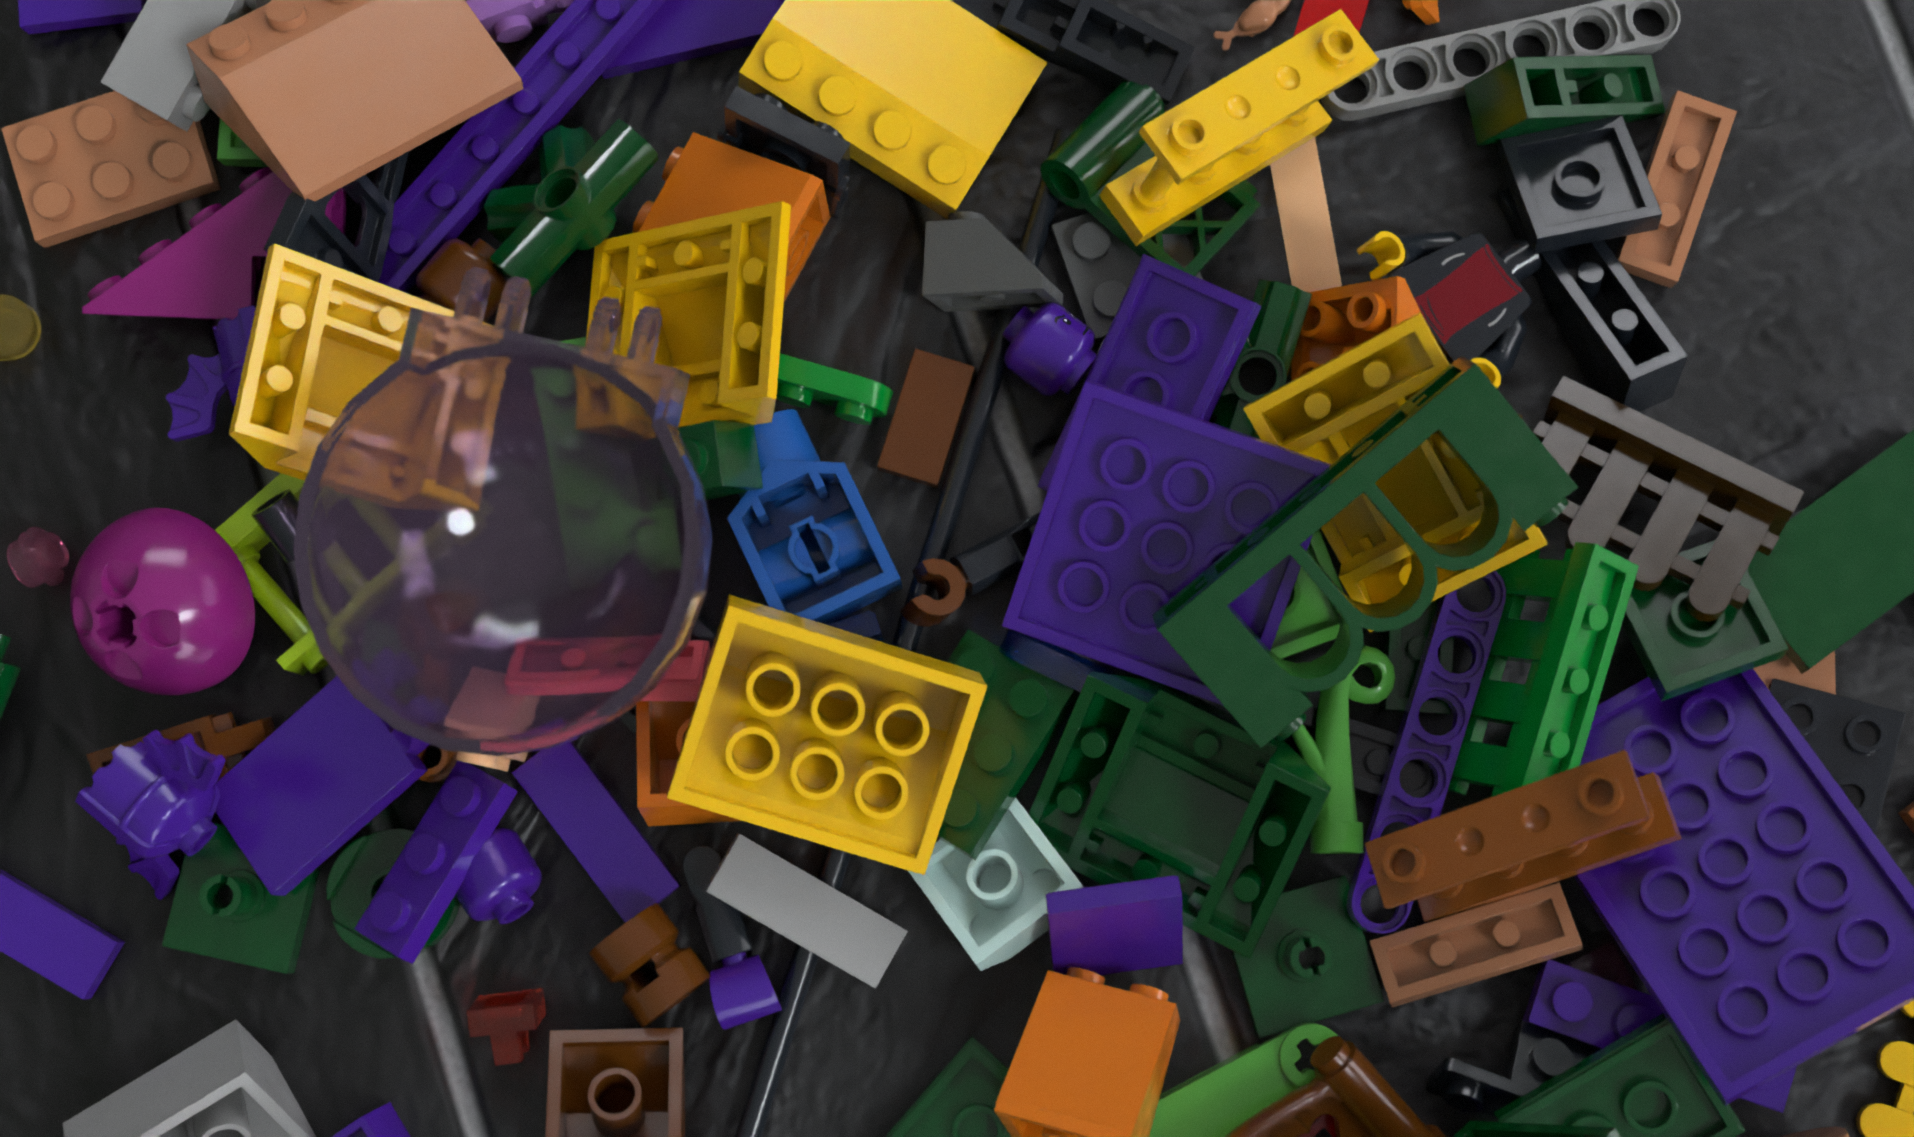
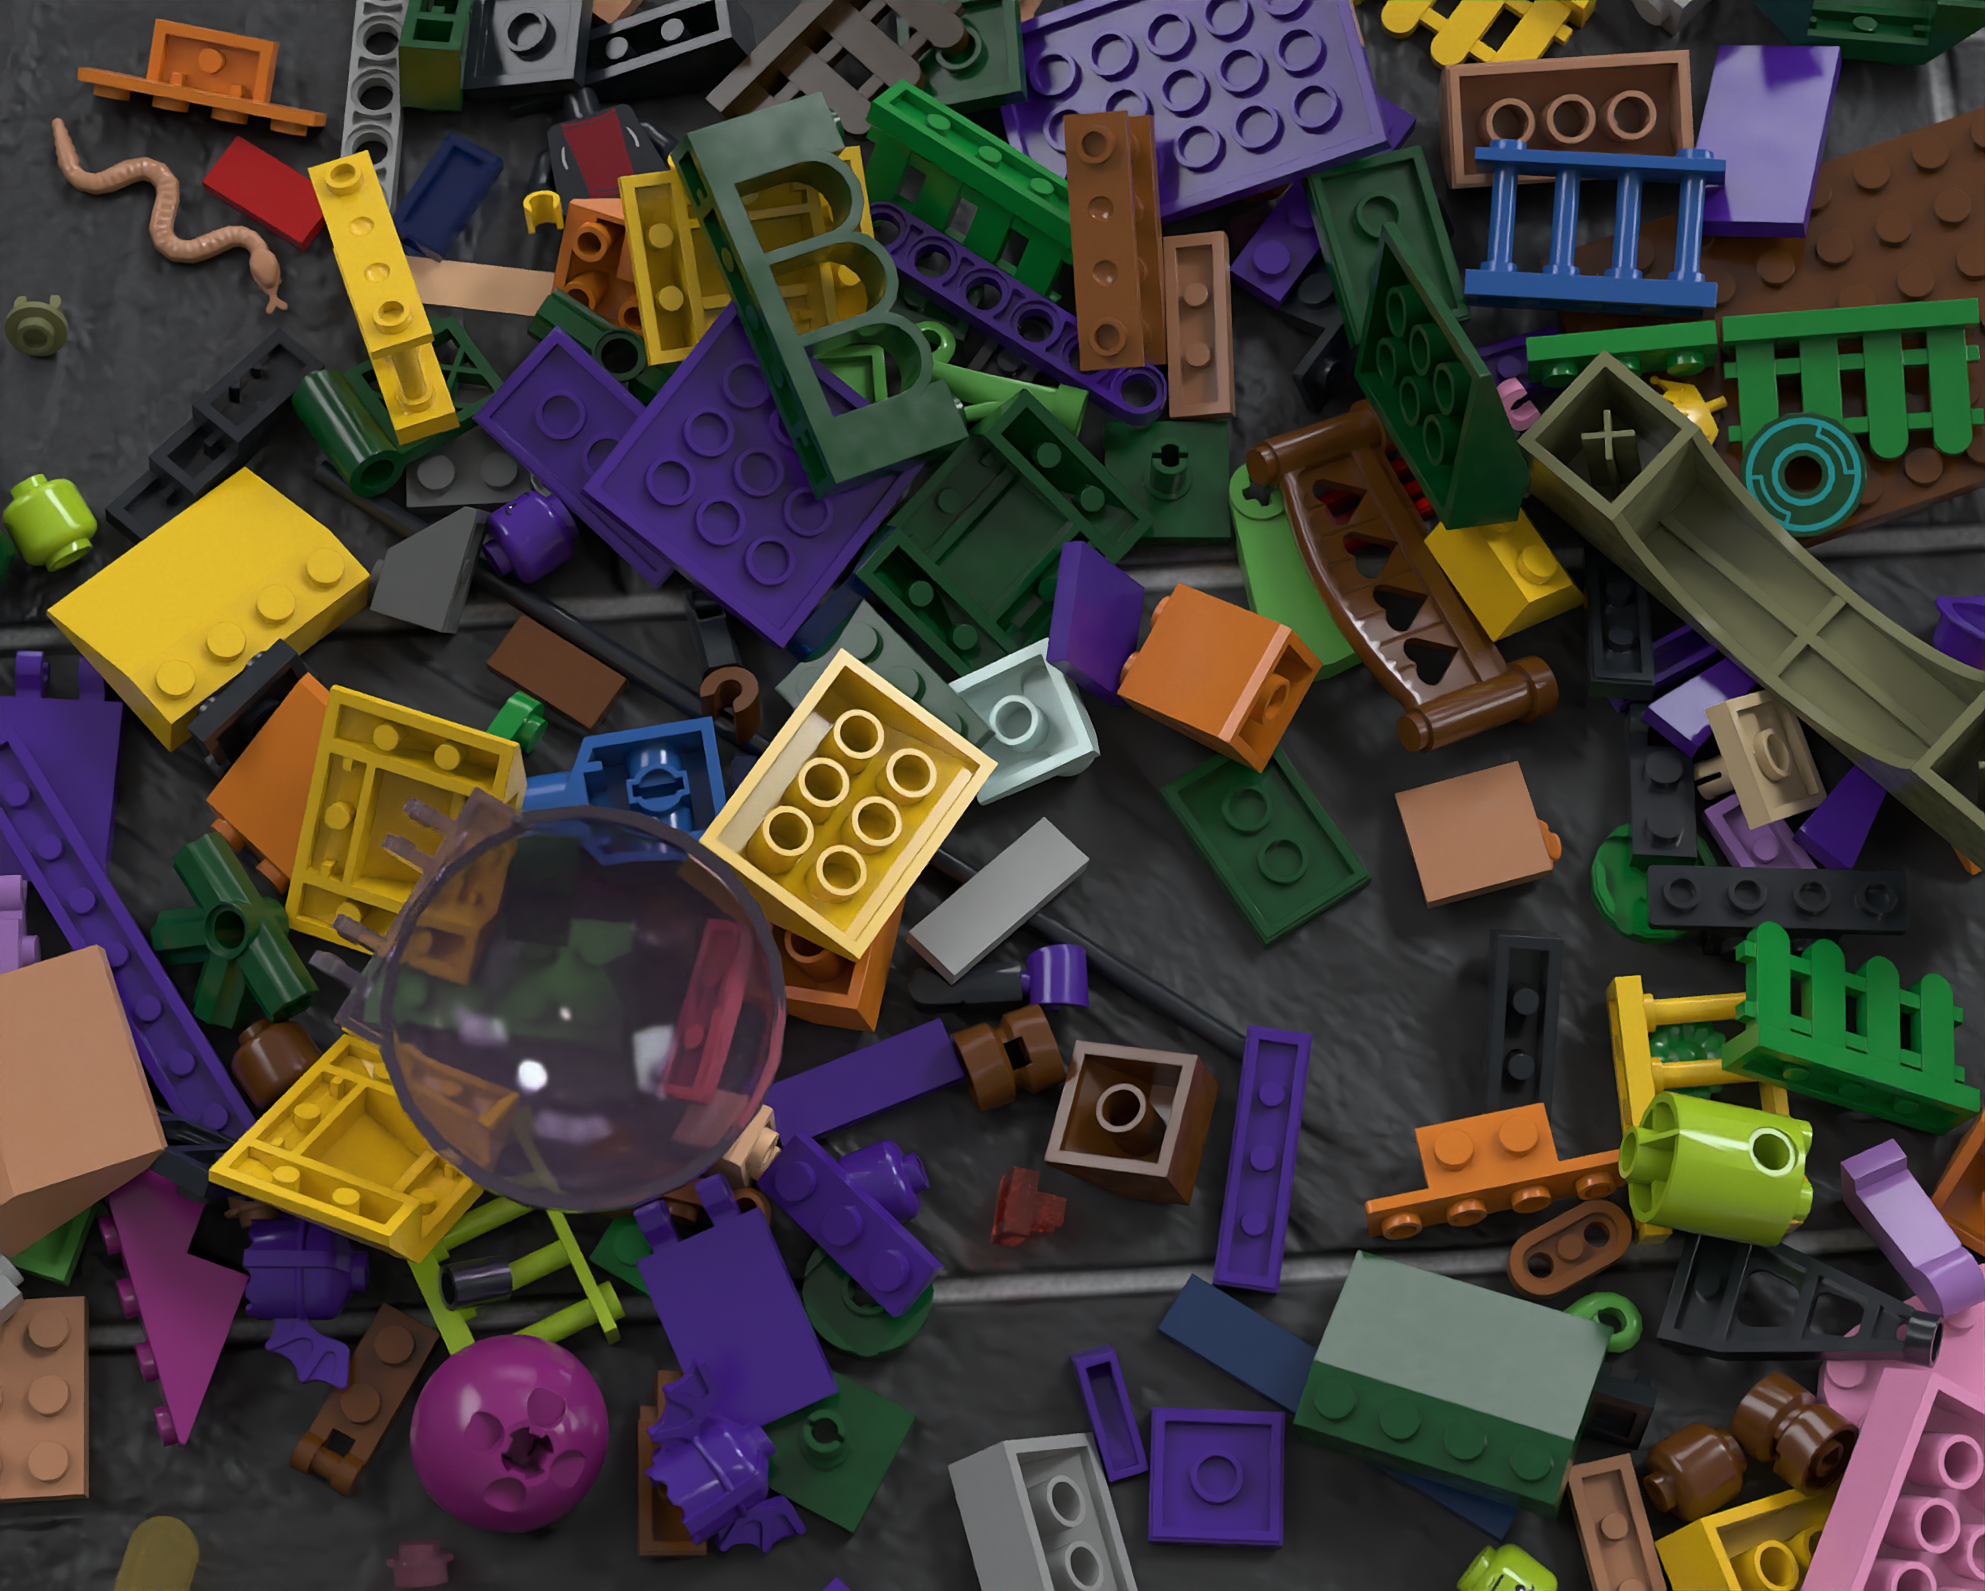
camera: 80 degrees left, 10 degrees down
(195, 467) = (380, 1383): none -> reddish brown plate
(1386, 160) = (446, 196): none -> clear blue tile

